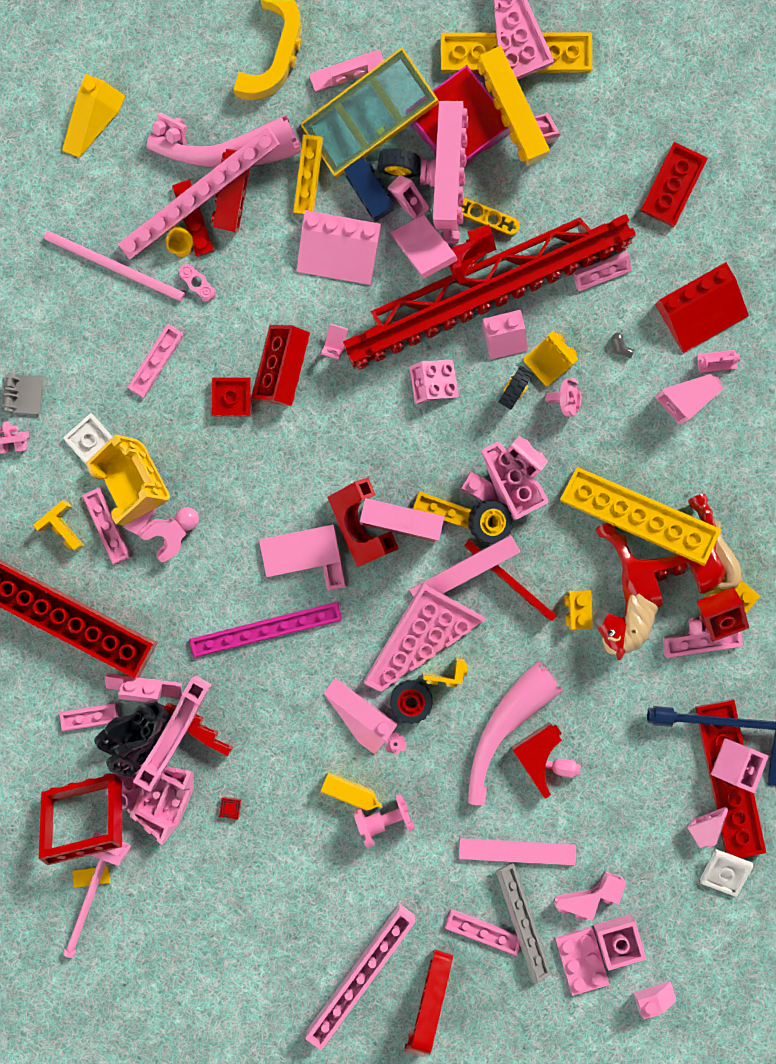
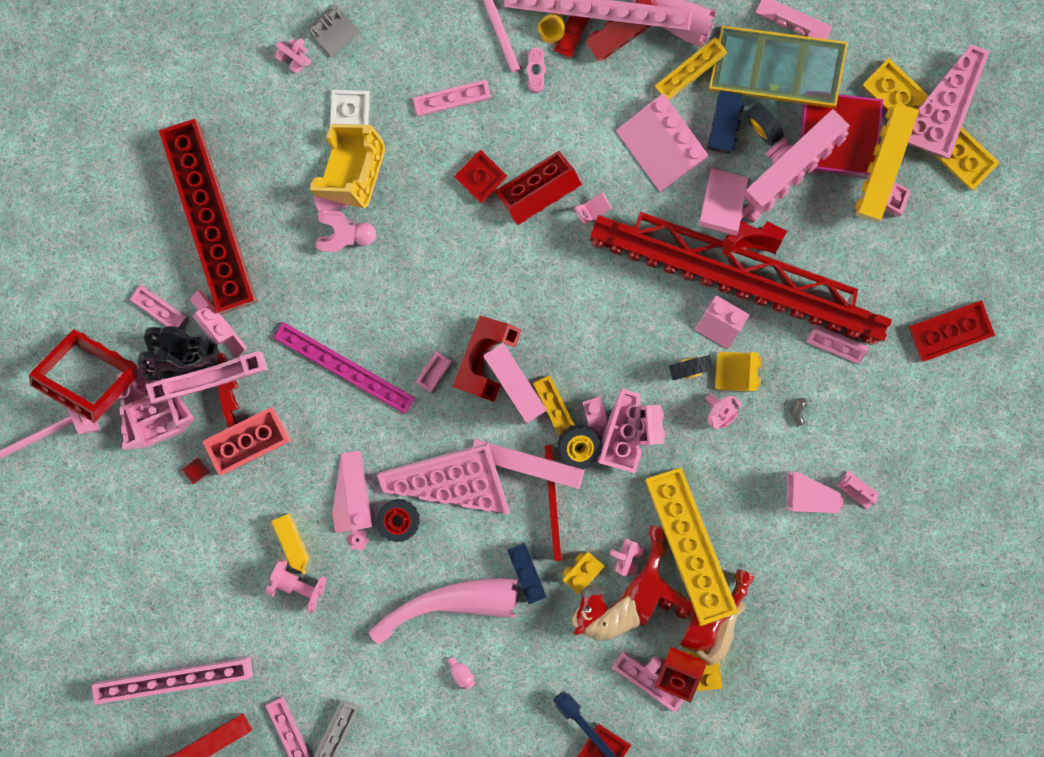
camera: 45 degrees right, 0 degrees up
(59, 526) = (268, 151): yellow bracket -> none
(83, 877) = (45, 419): yellow piece -> none
(106, 526) = (301, 183): bright pink tile -> none
(246, 750) = (247, 441): none -> coral slope
(300, 550) = (423, 335): bright pink tile -> none
(408, 196) = (748, 154): bright pink slope -> none
(433, 380) = (638, 305): bright pink bracket -> none
(460, 670) = (454, 532): yellow bracket -> none
(485, 213) = (793, 220): yellow beam -> none
(517, 851) = (369, 701): bright pink tile -> none
(534, 752) = (451, 642): red arch -> none
(540, 649) = (526, 573): none -> dark blue brick
(599, 569) = (625, 557): none -> bright pink hips
(703, 307) = (885, 441): red slope -> none

